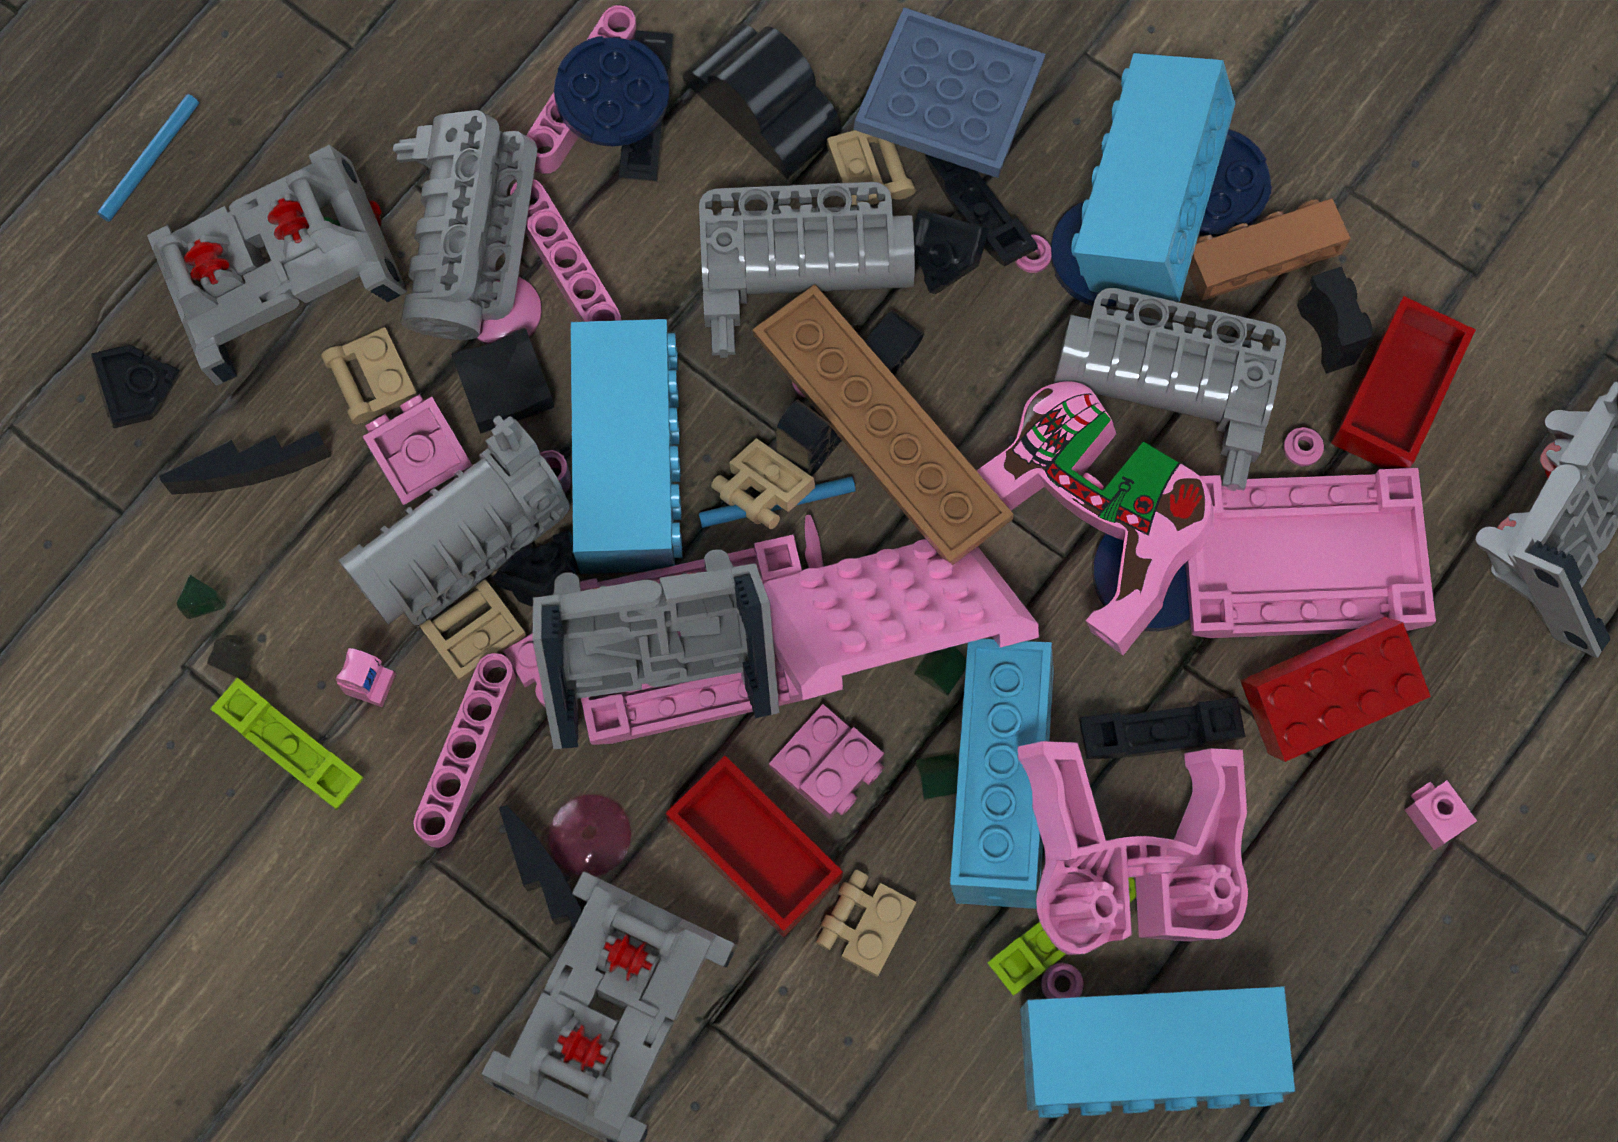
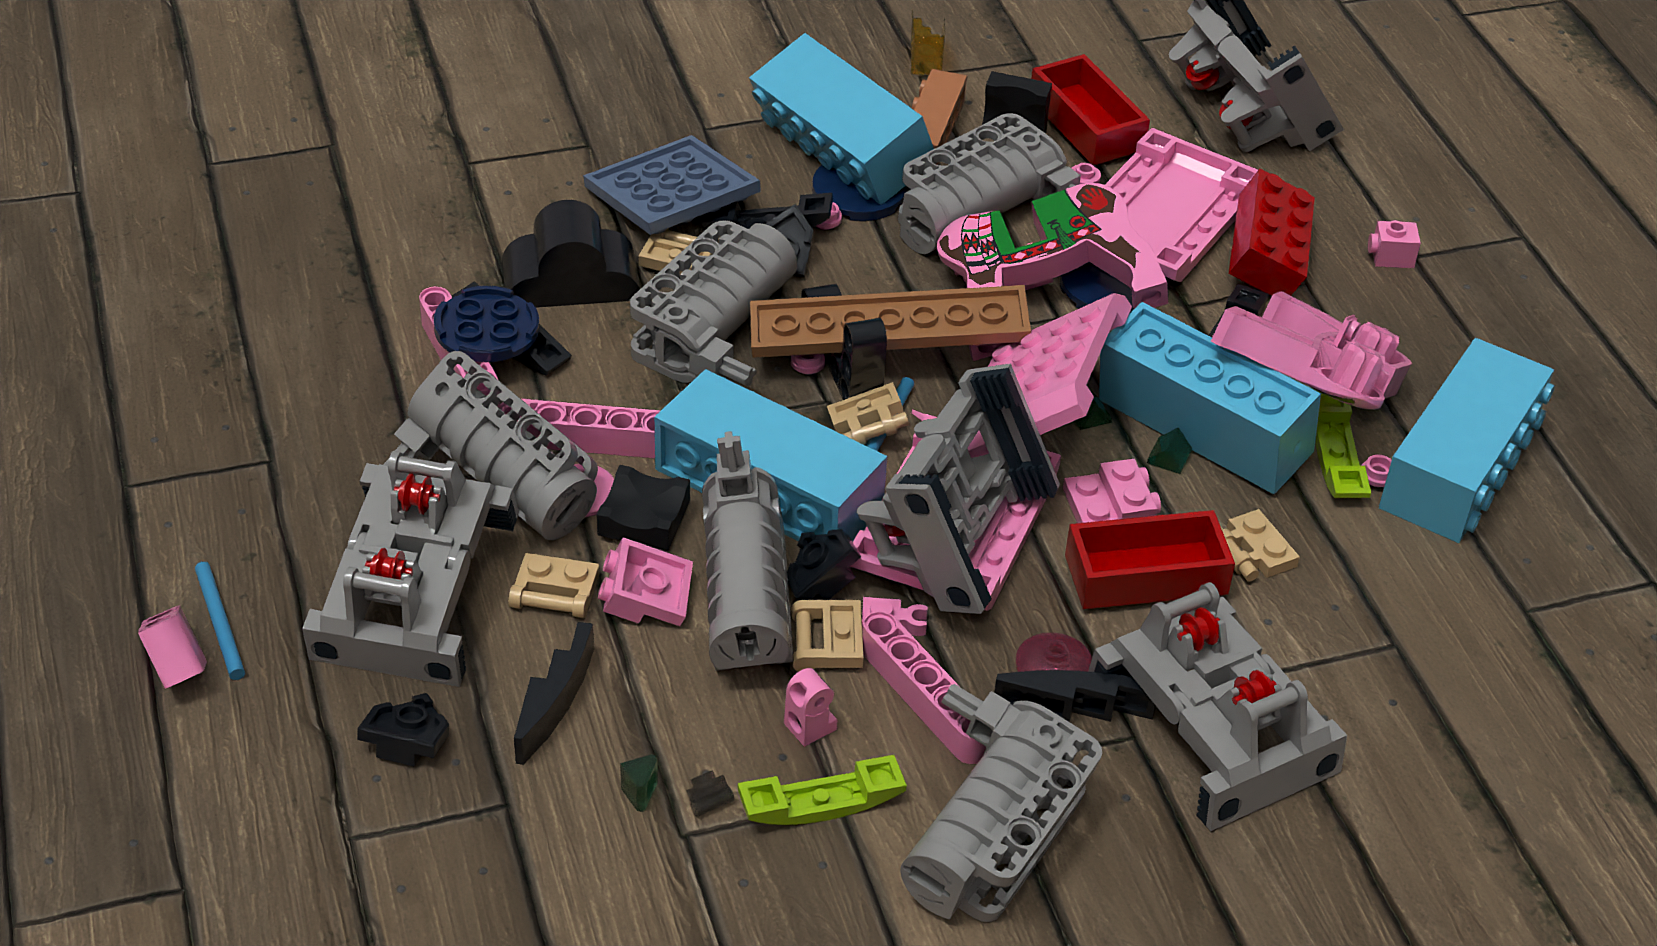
camera: 55 degrees left, 30 degrees down
(73, 156) = (172, 646): none -> bright pink piece
(348, 900) = (997, 806): none -> light grey piece
(1395, 136) = (926, 48): none -> clear yellow piece

